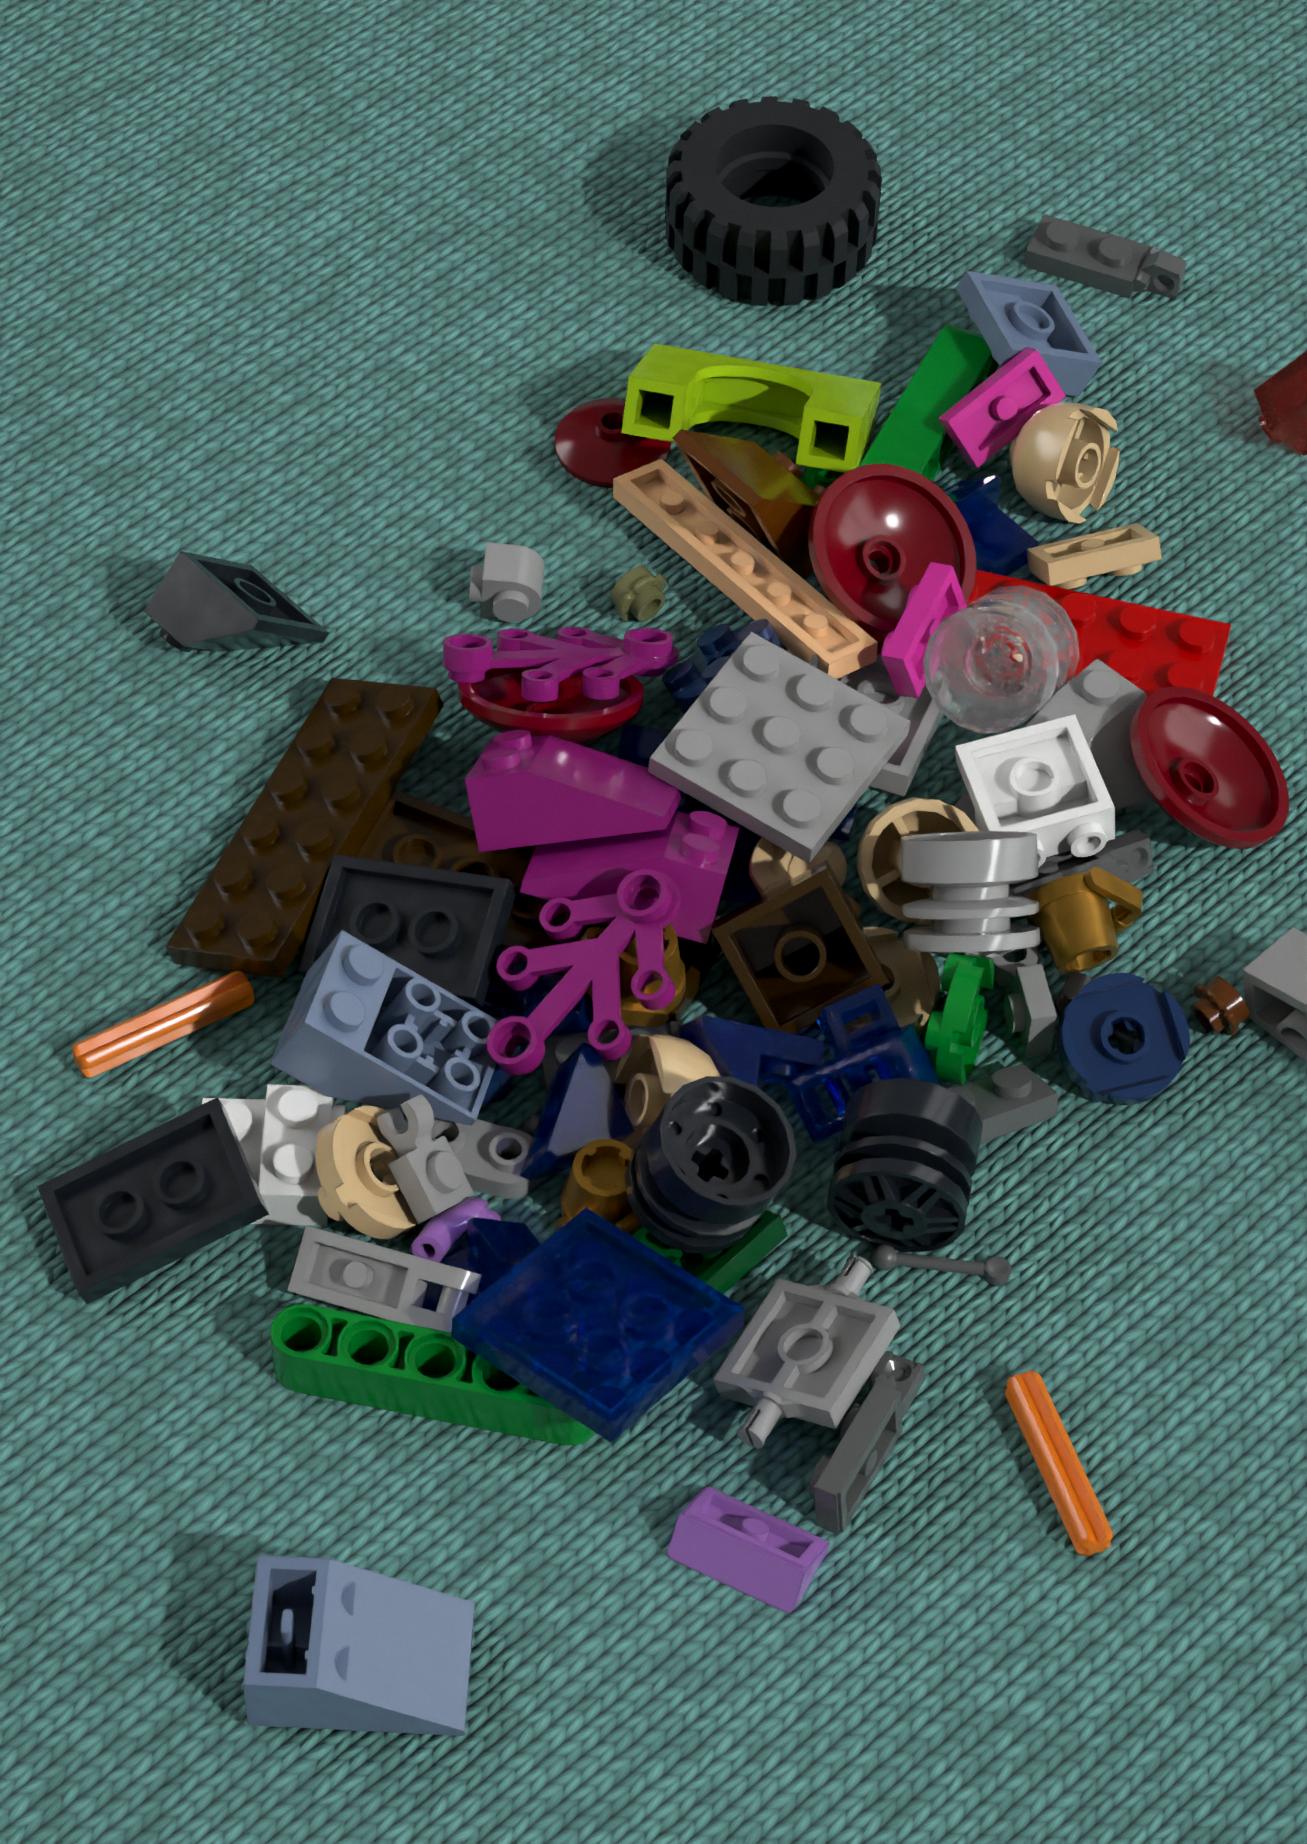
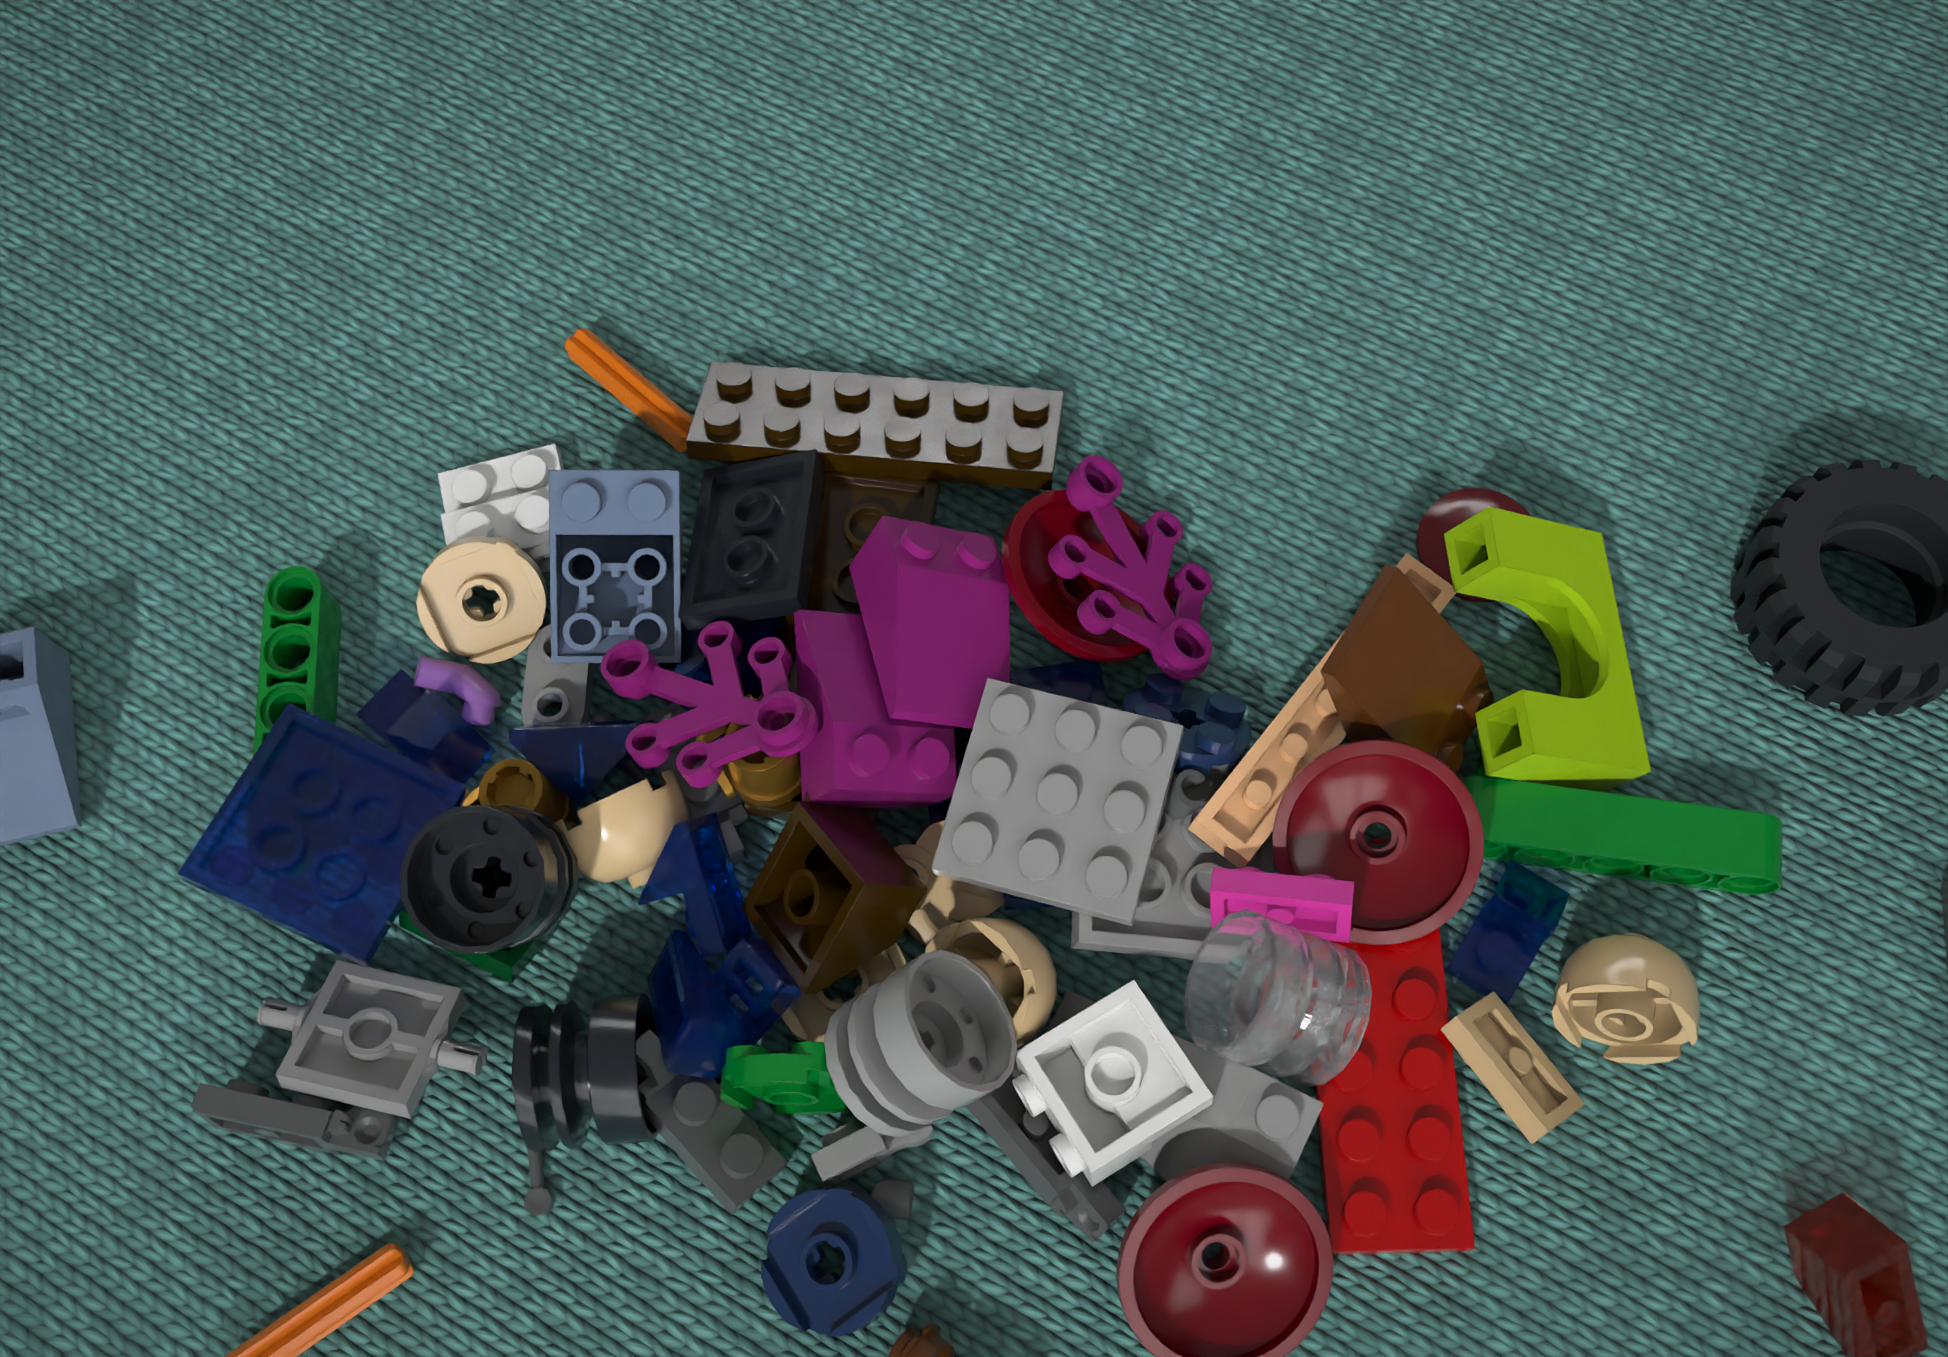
camera: 80 degrees right, 15 degrees up
(152, 1200) = (420, 438): black plate -> none
(227, 608) = (1110, 283): black slope -> none
(378, 1280) = (372, 649): light grey plate -> none
(426, 1168) = (499, 642): light grey plate -> none
(508, 583) = (1233, 500): light grey plate -> none
(639, 594) = (1272, 623): olive plate -> none
(747, 1549) = (181, 1044): medium lavender slope -> none
(1001, 406) = (1663, 906): dark pink plate -> none
(1034, 316) = (1804, 907): sand blue plate -> none
(1078, 919) = (955, 1172): pearl gold piece -> none

